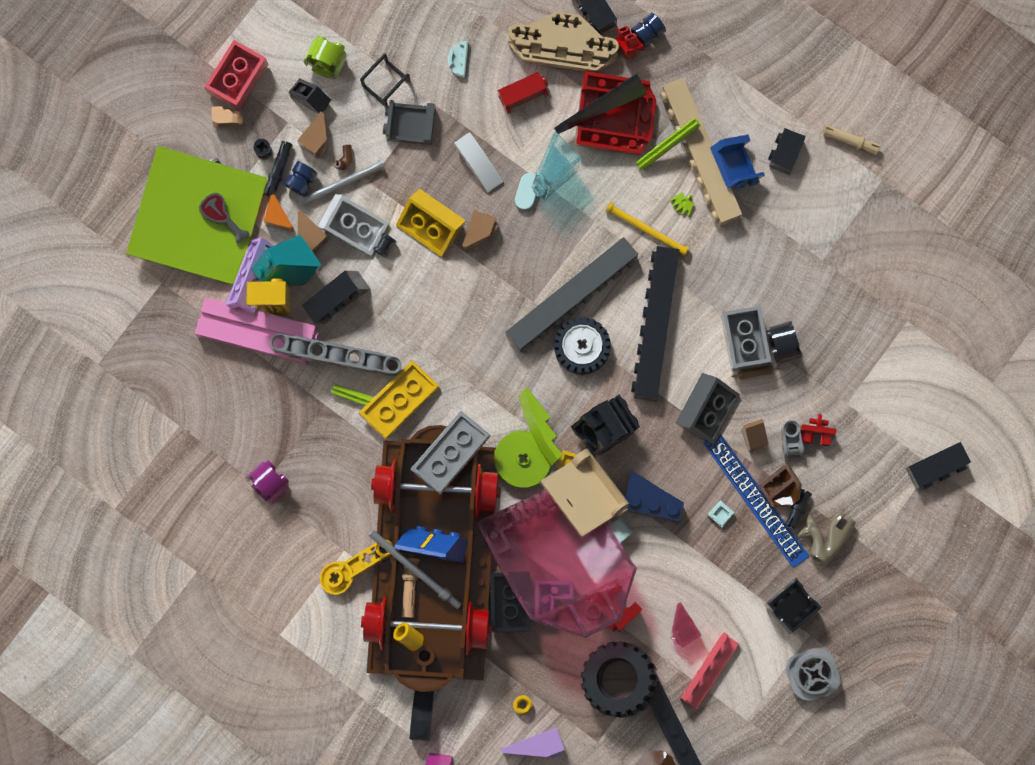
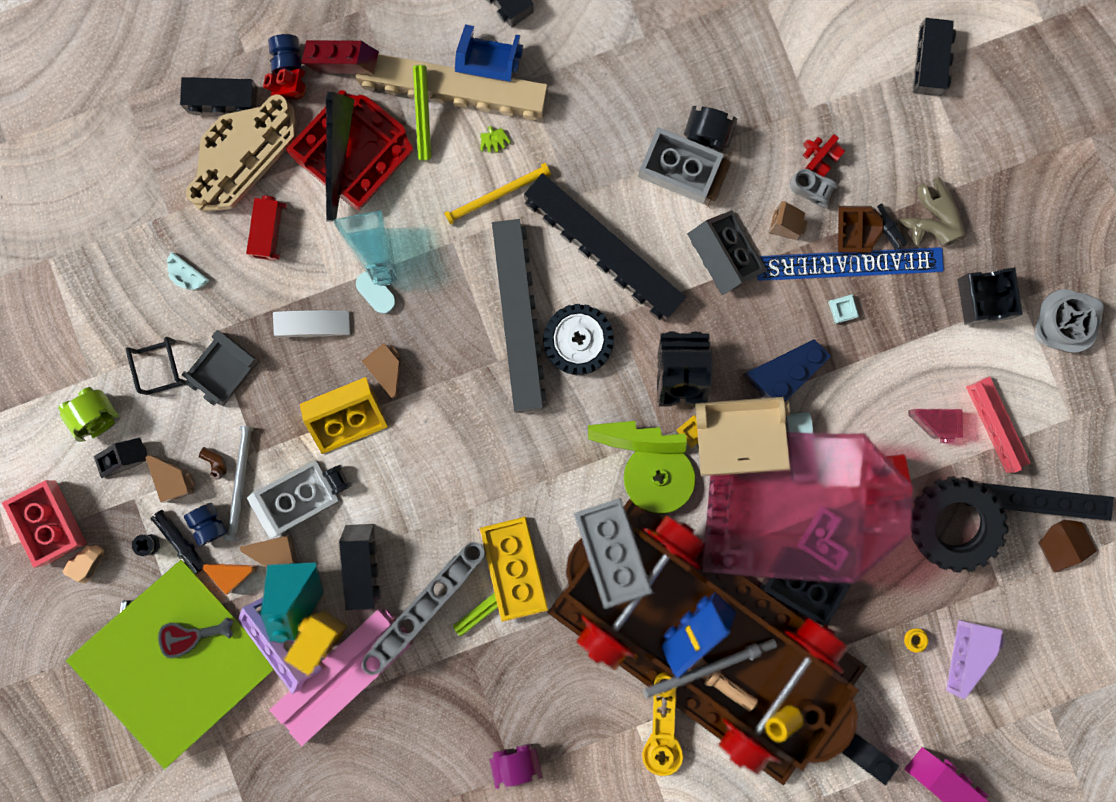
camera: 65 degrees left, 5 degrees up
(669, 66) = (340, 56): none -> dark red brick

